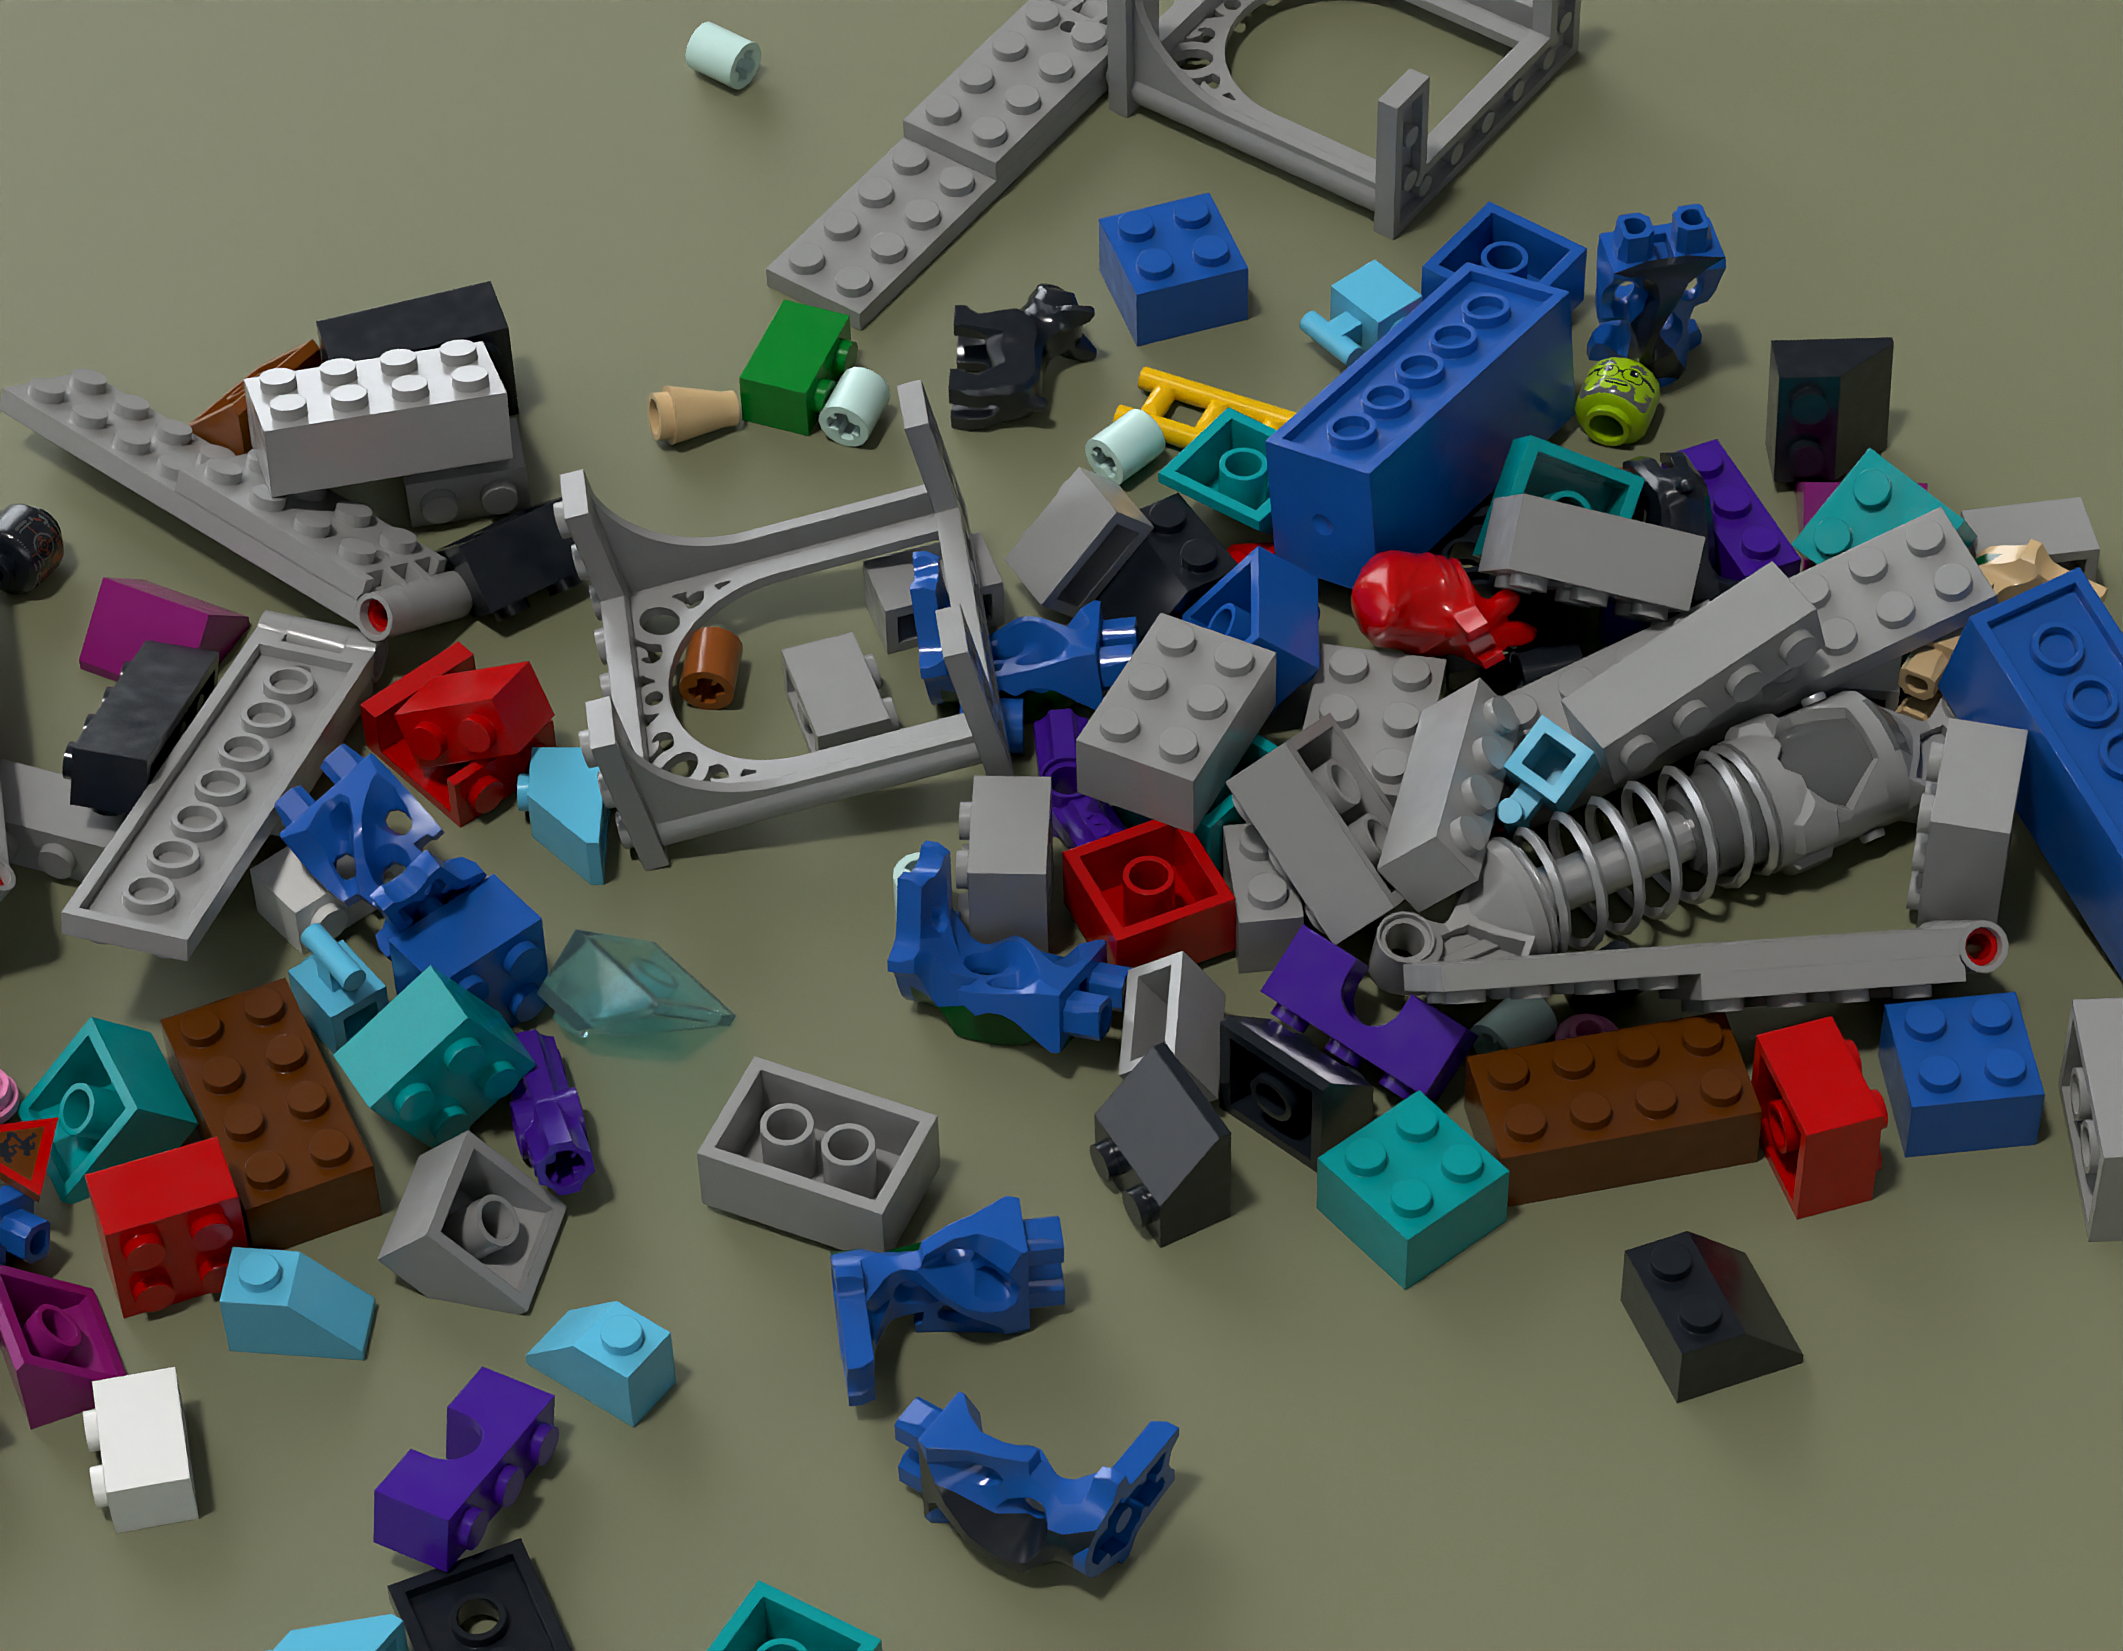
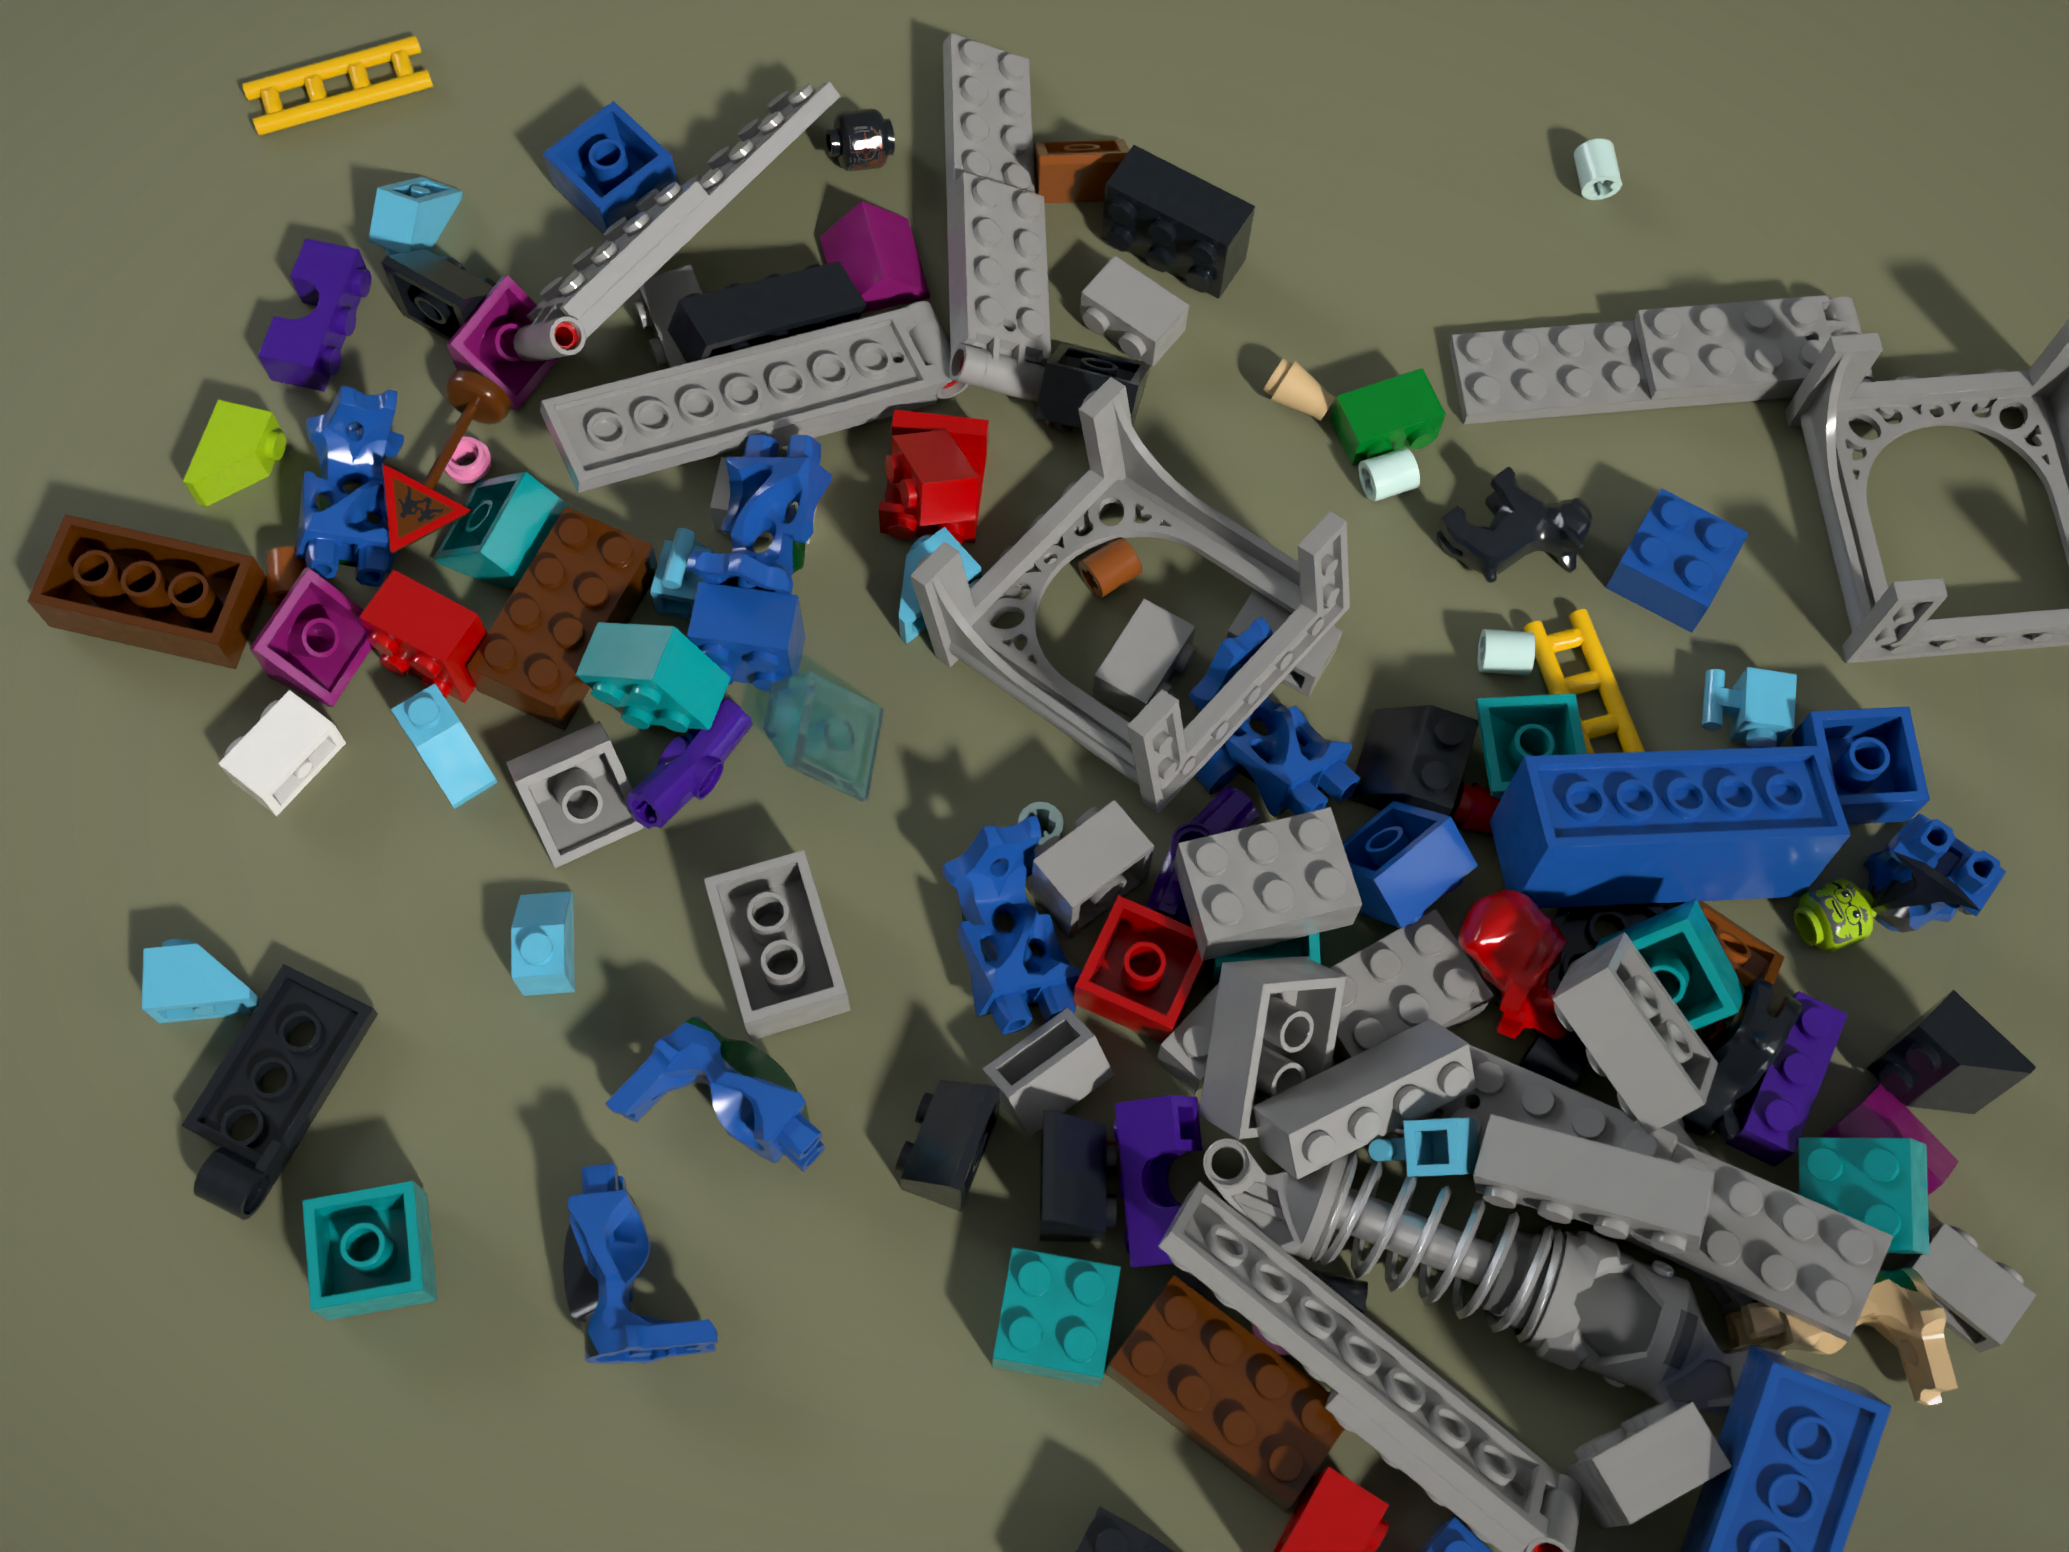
camera: 45 degrees right, 20 degrees up
(378, 417) = (1094, 238): light grey brick -> none
(493, 1443) = (348, 954): dark purple arch -> none
(1078, 542) = (1386, 695): light grey brick -> none

